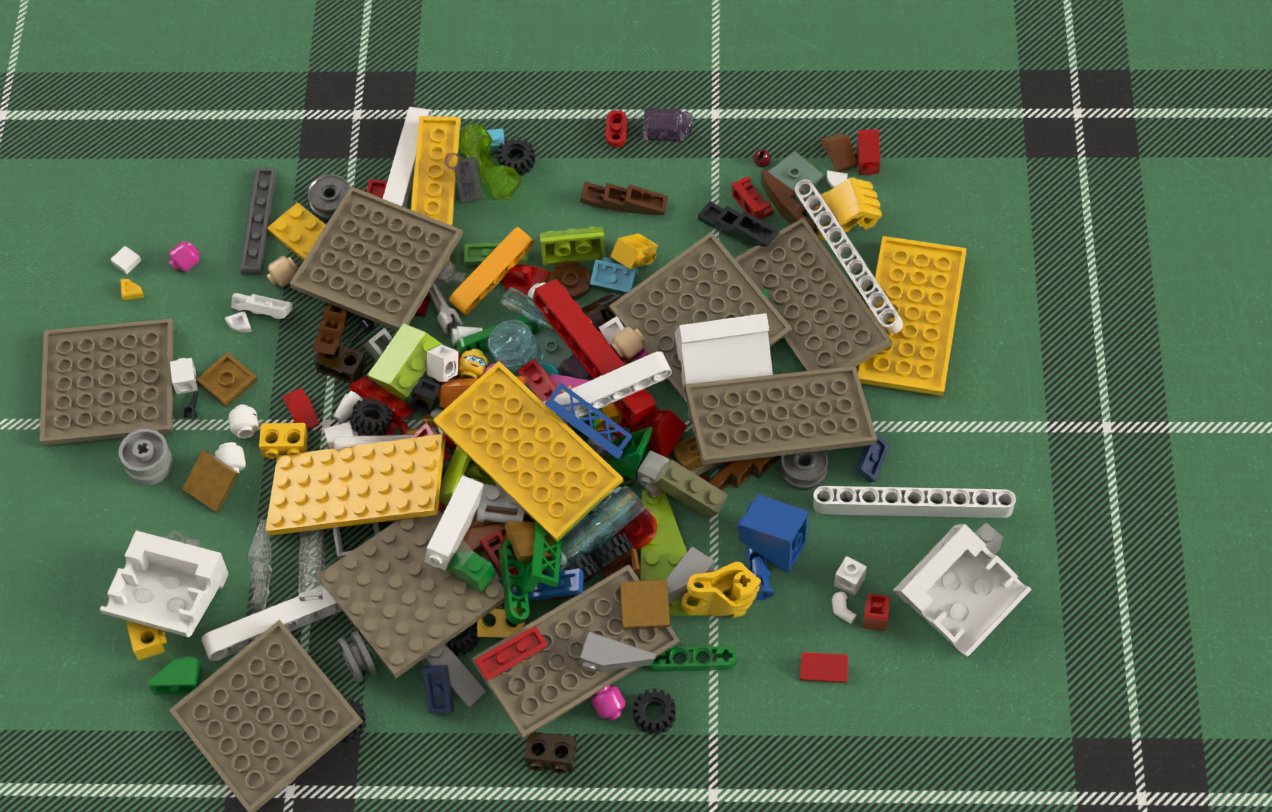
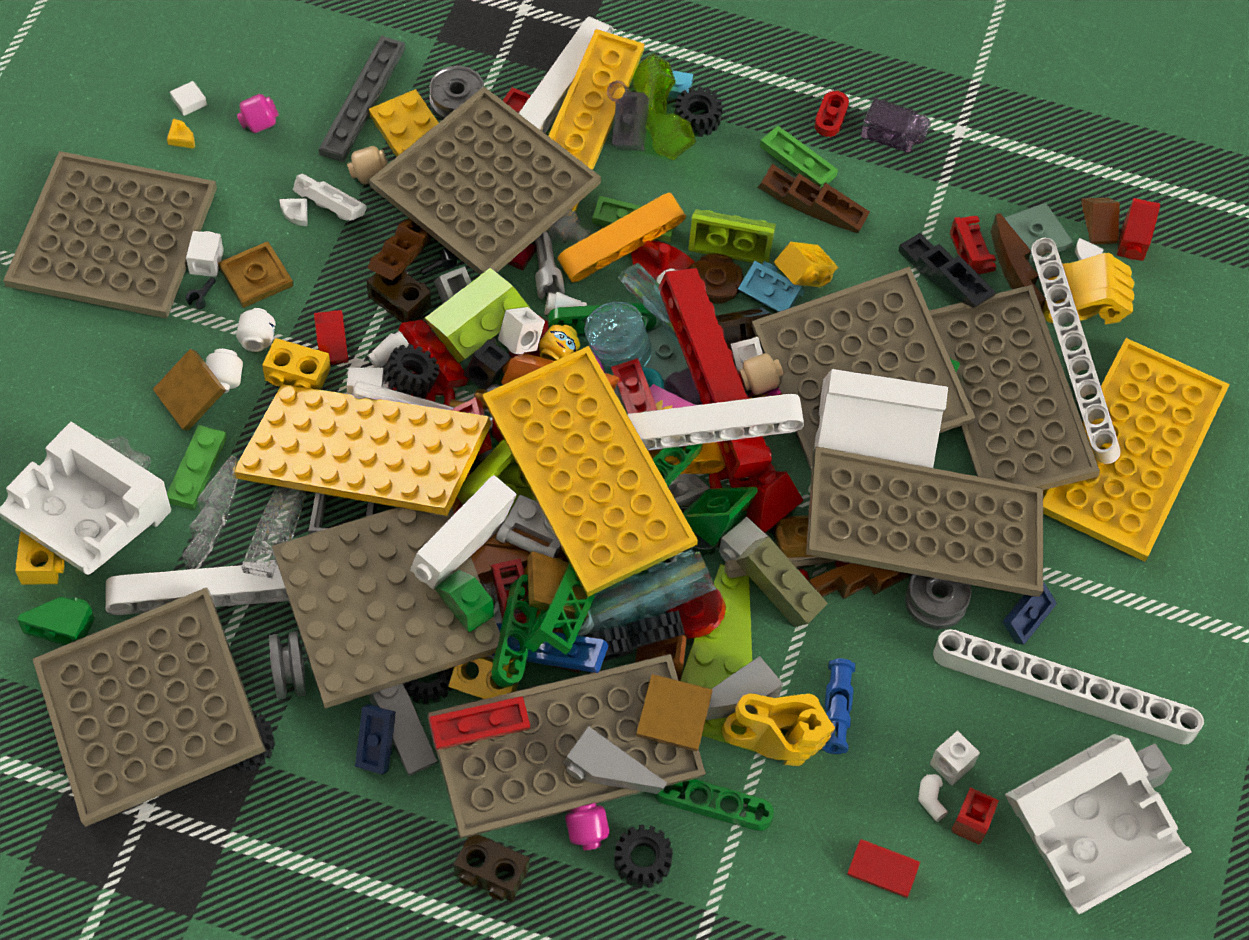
camera: 10 degrees right, 0 degrees up
(146, 457) = (122, 337): light grey wheel -> none
(236, 536) = (196, 467): none -> bright green plate
(585, 428) = (670, 463): blue fence -> none
(602, 170) = (798, 157): none -> bright green plate
(765, 160) = (1006, 202): dark red hinge -> none
(774, 530) = (873, 668): blue slope -> none

